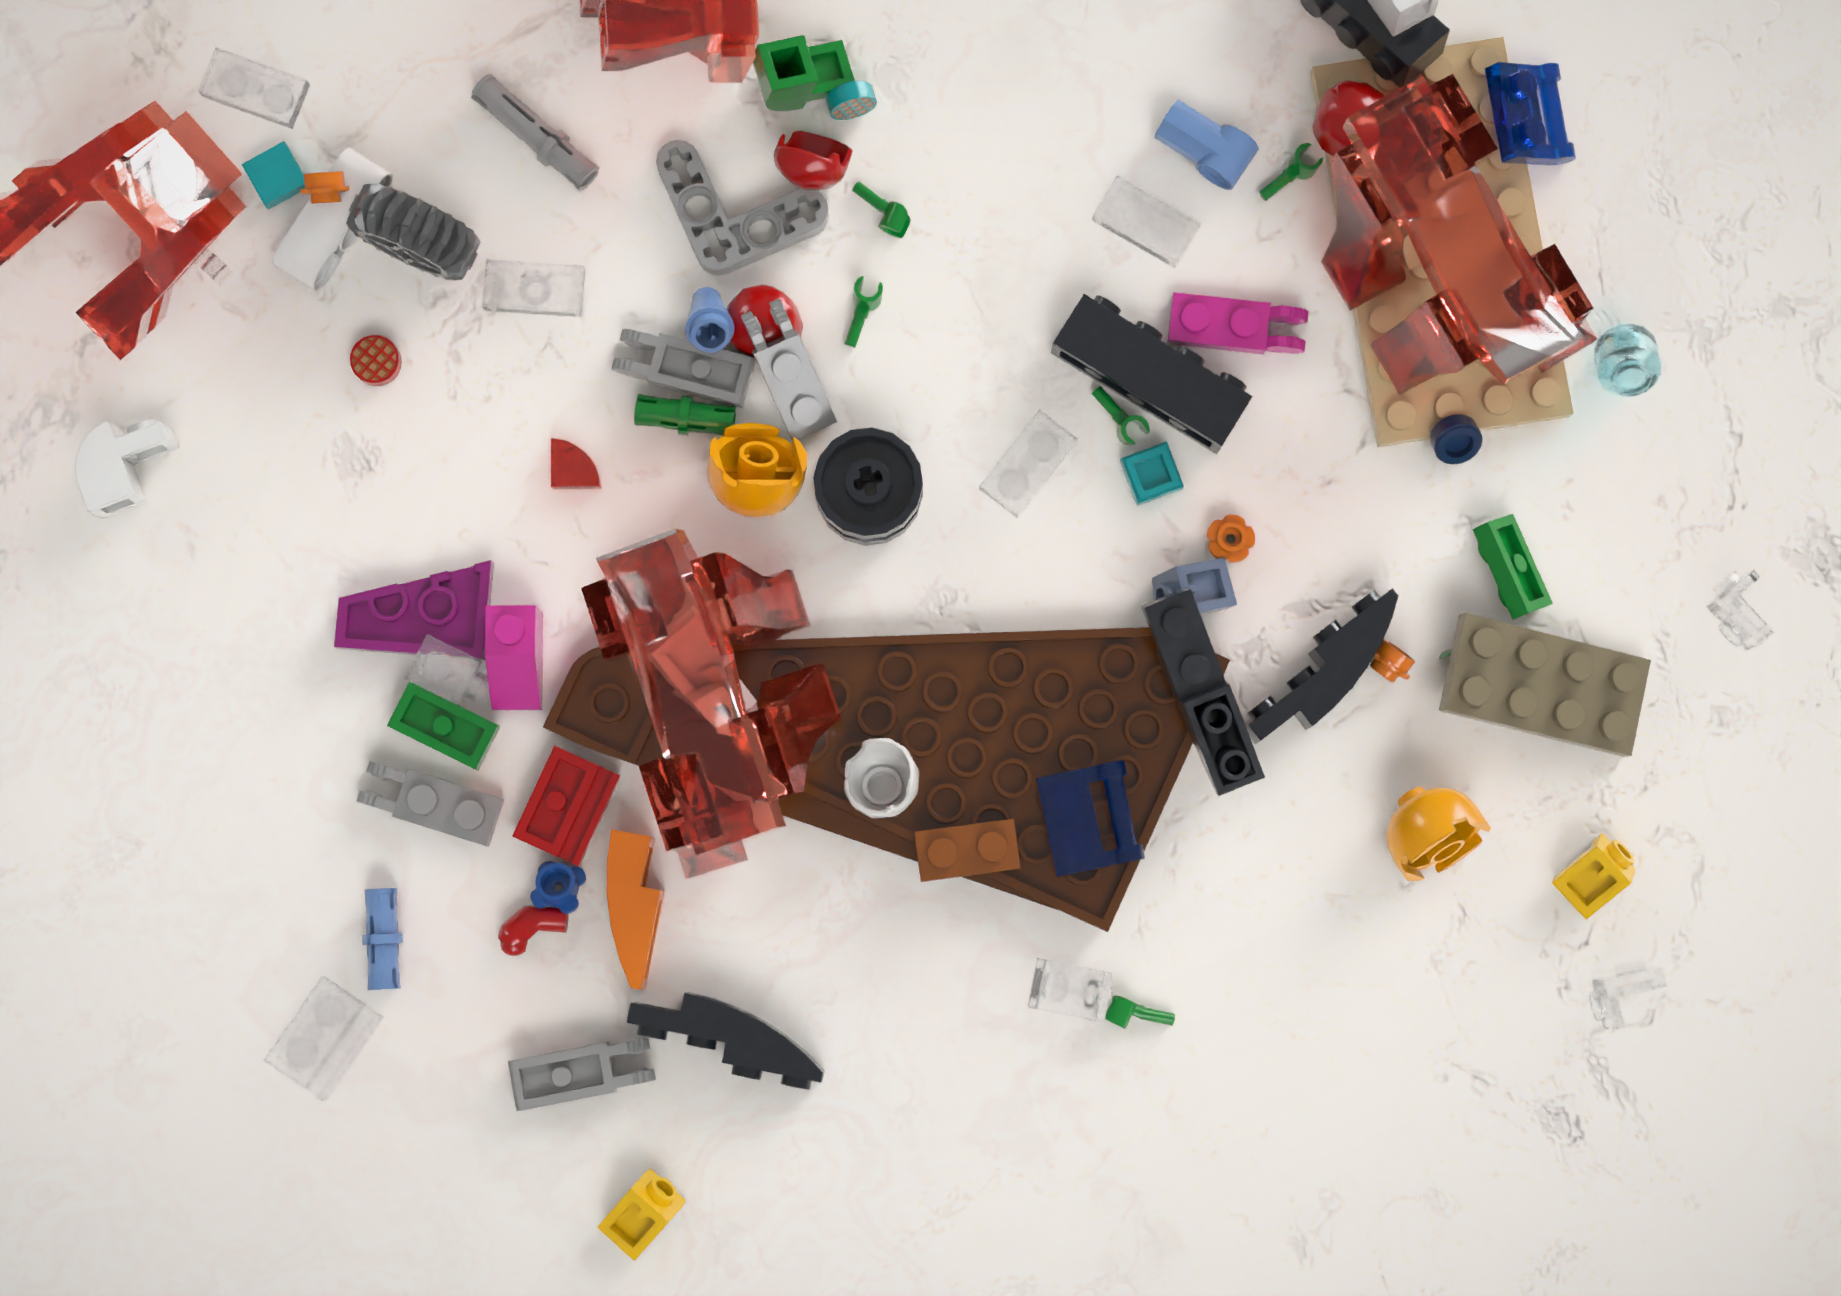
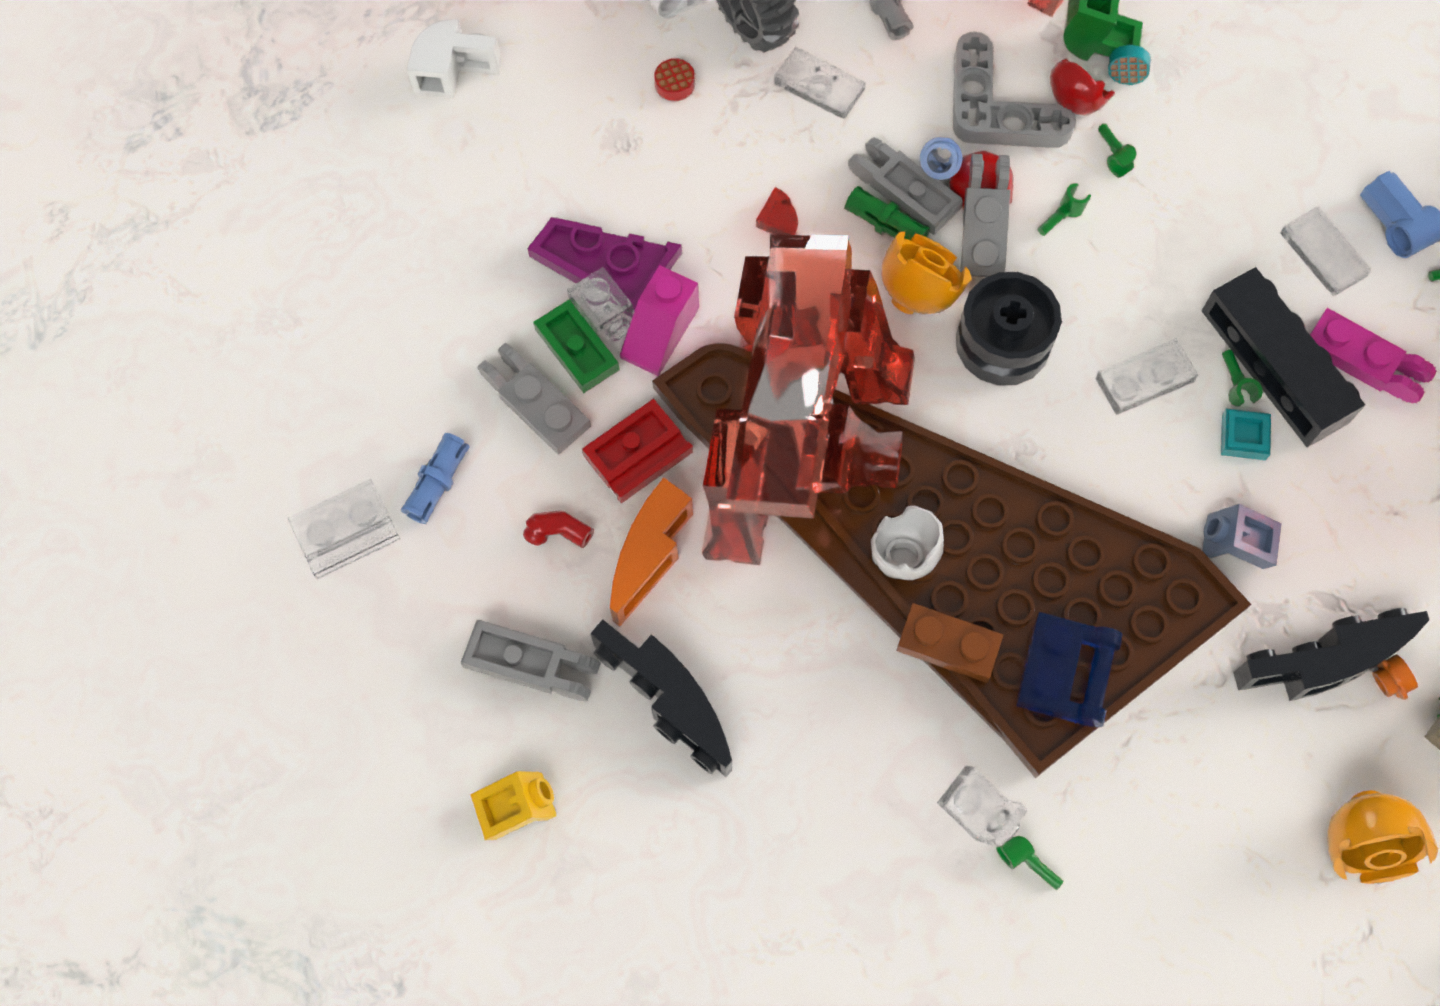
camera: 30 degrees right, 15 degrees down
(551, 874) = (593, 498): blue plate -> none
(1202, 692) = (1217, 611): black slope -> none
(1218, 544) = (1292, 524): orange plate -> none

